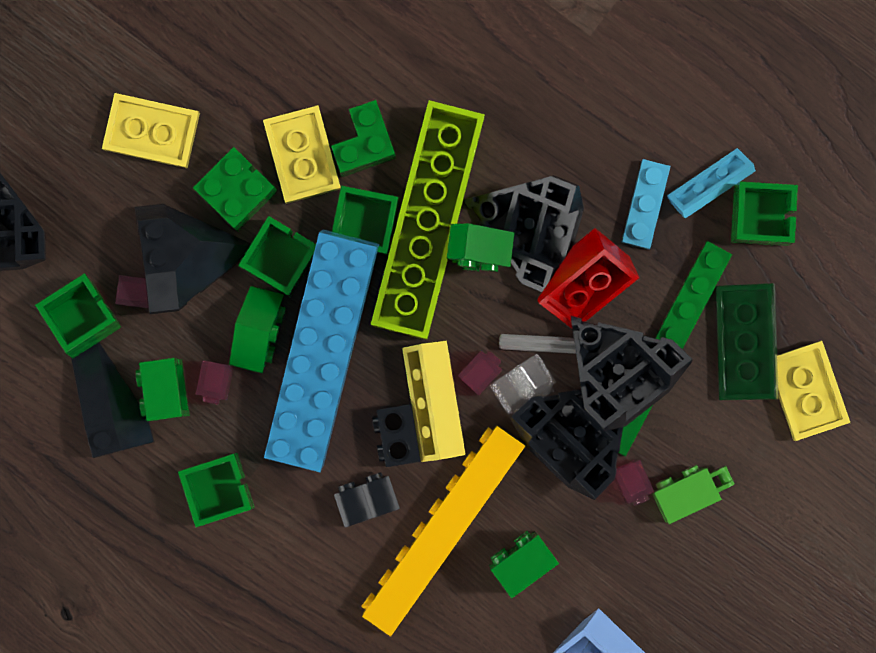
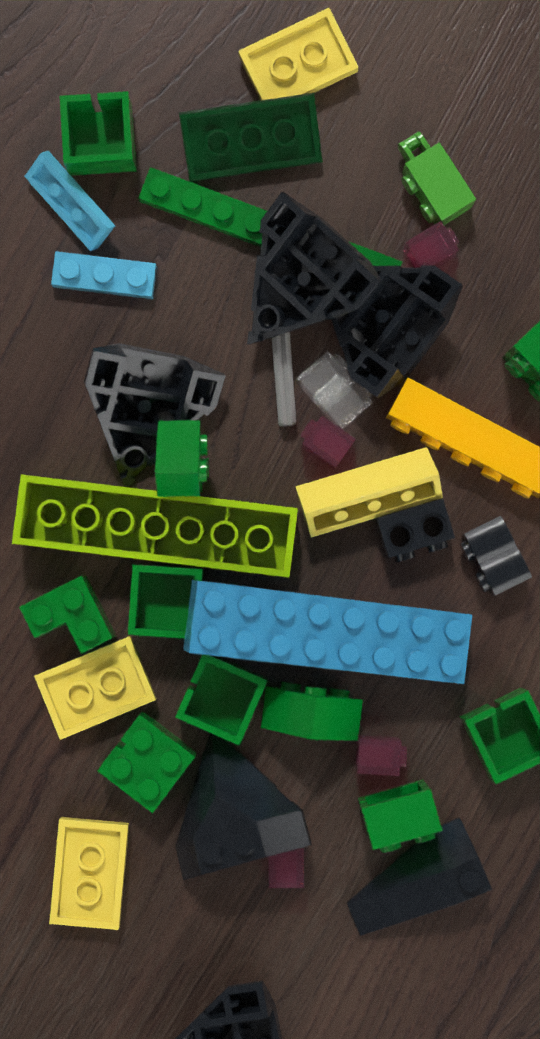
camera: 90 degrees left, 0 degrees up
(78, 316) = (324, 930): green piece -> none
(588, 278) = (201, 328): red slope -> none

